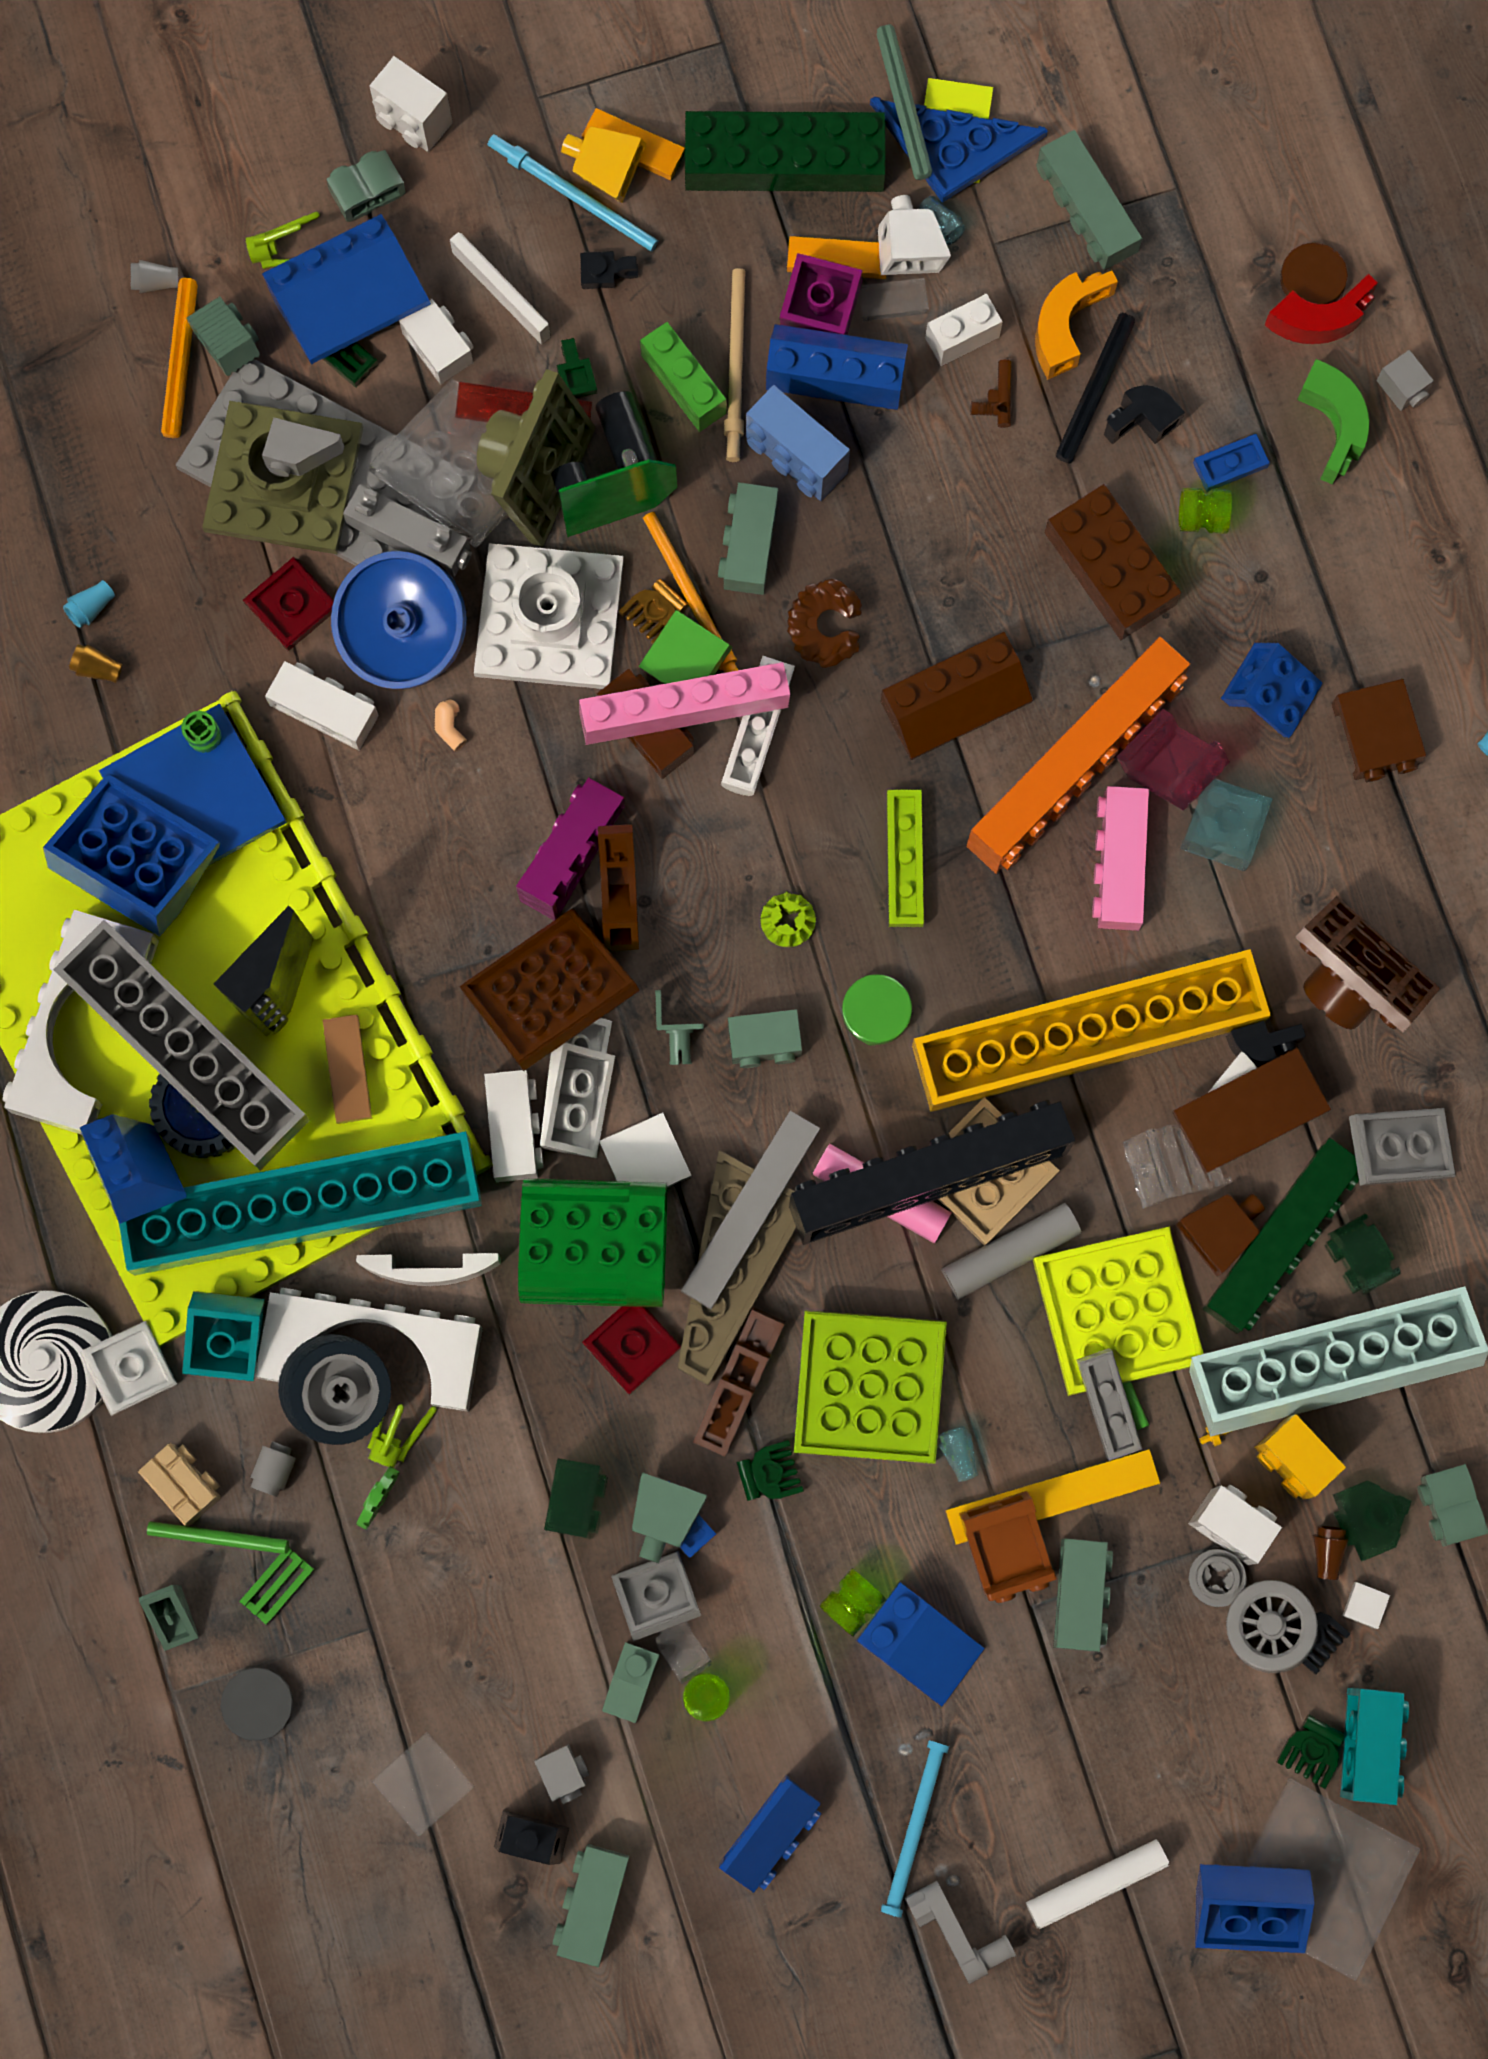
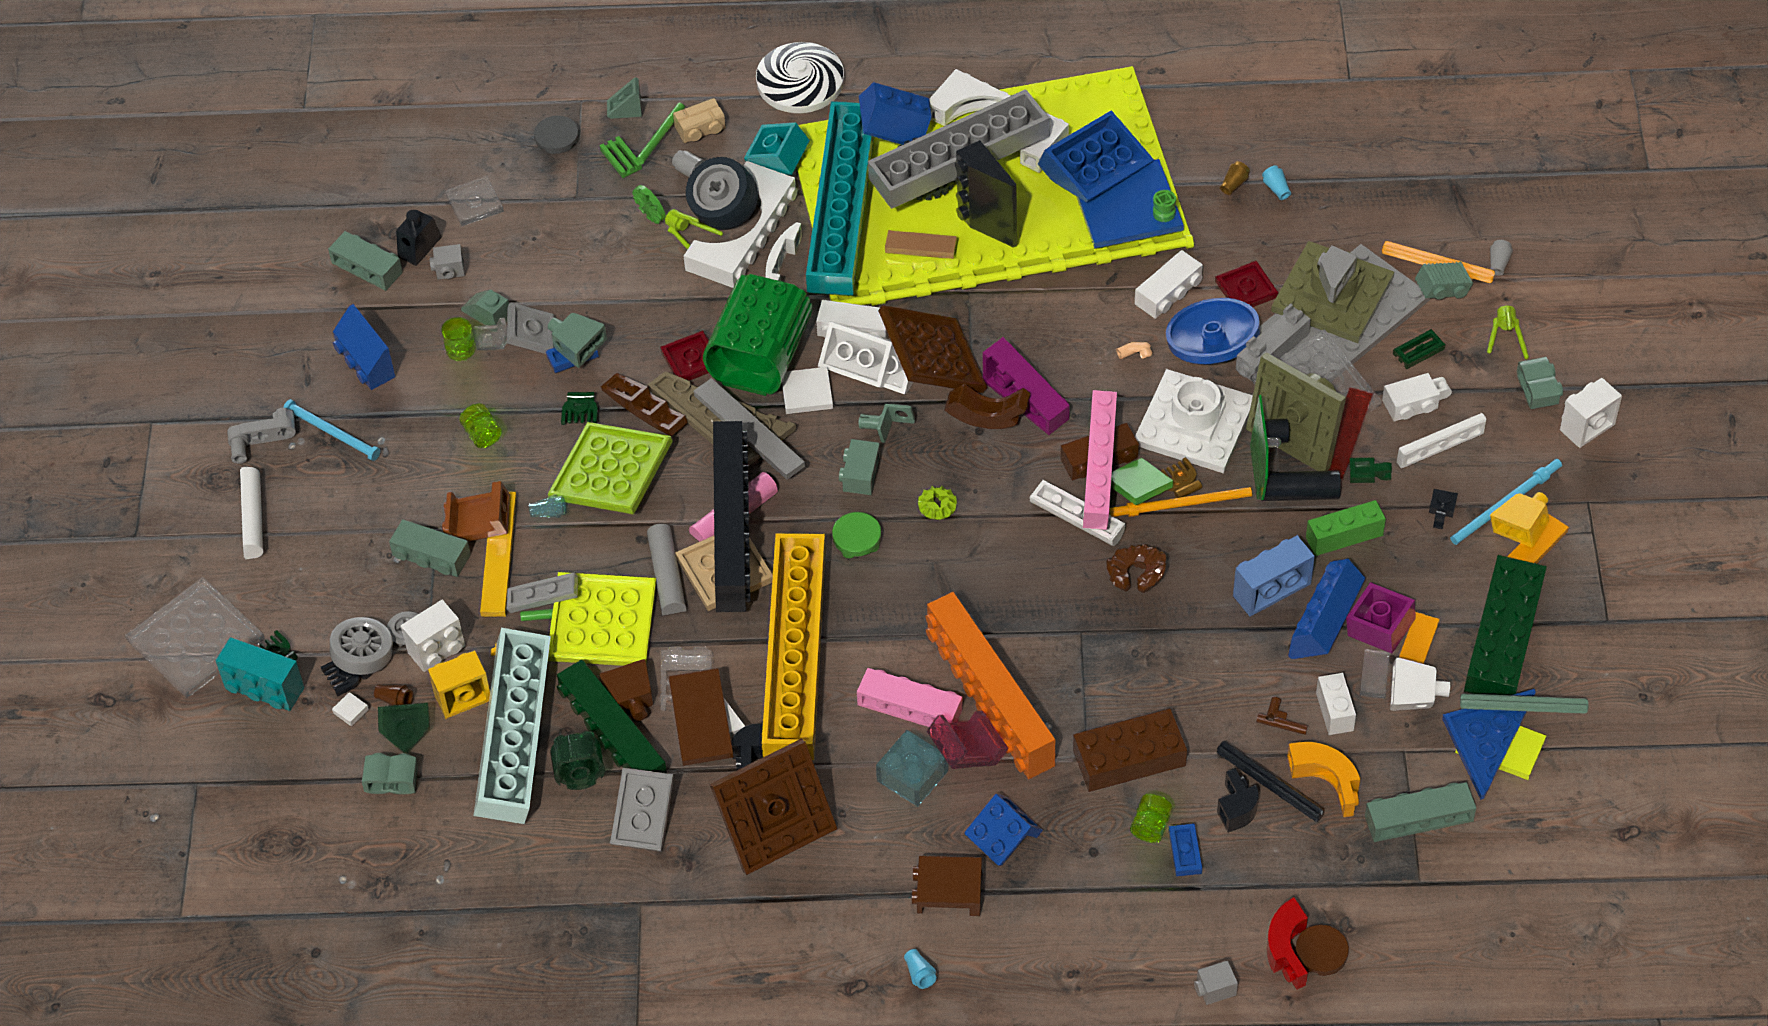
camera: 110 degrees right, 25 degrees down
(128, 1368) = (778, 106): white tile -> none
(346, 289) = (1460, 350): blue slope -> none
(575, 1499) = (605, 296): clear green brick -> none
(734, 424) = (1373, 572): tan bar -> none
(749, 538) = (1213, 540): sand green brick -> none
(905, 858) = (955, 575): lime plate -> none
(920, 1644) = (441, 456): blue slope -> none
(948, 221) = (1426, 715): clear light blue cone -> none
(956, 696) = (1061, 632): reddish brown slope -> none
(1253, 1908) = (196, 583): blue slope -> none
(1345, 407) = (1202, 935): bright green arch -> none

